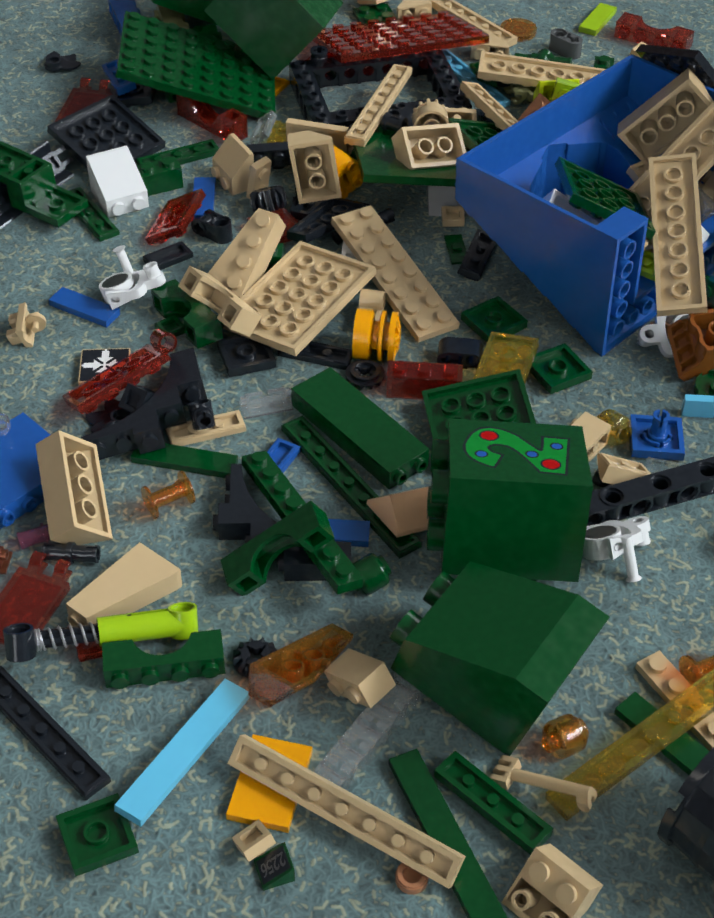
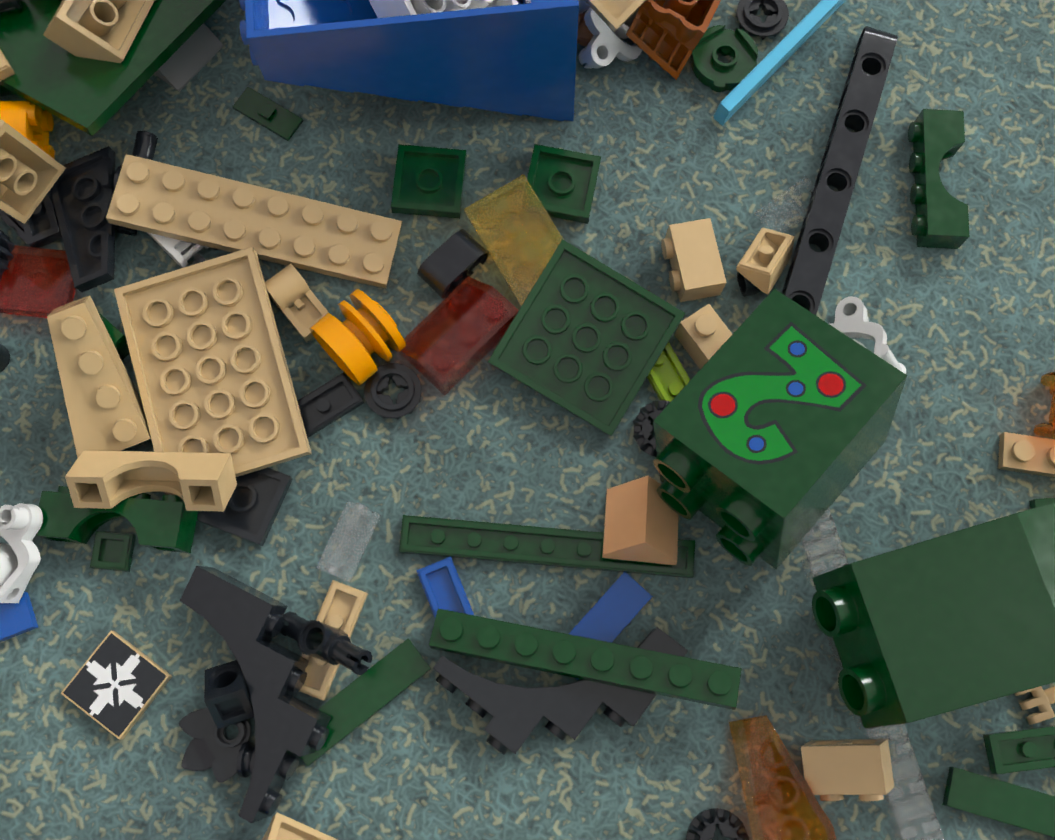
camera: 55 degrees left, 30 degrees up
(128, 370) = (168, 690): clear red hinge -> none
(164, 496) = (412, 771): clear orange piece -> none
(249, 564) = (639, 689): dark green arch -> none
(360, 428) = (478, 469): dark green brick -> none
(374, 571) = (703, 633): dark green head -> none
(452, 216) = (212, 70): tan plate -> none
(476, 256) = (309, 114): black tile -> none
(620, 426) = (694, 205): clear yellow head -> none
(657, 432) = (747, 174): blue plate -> none

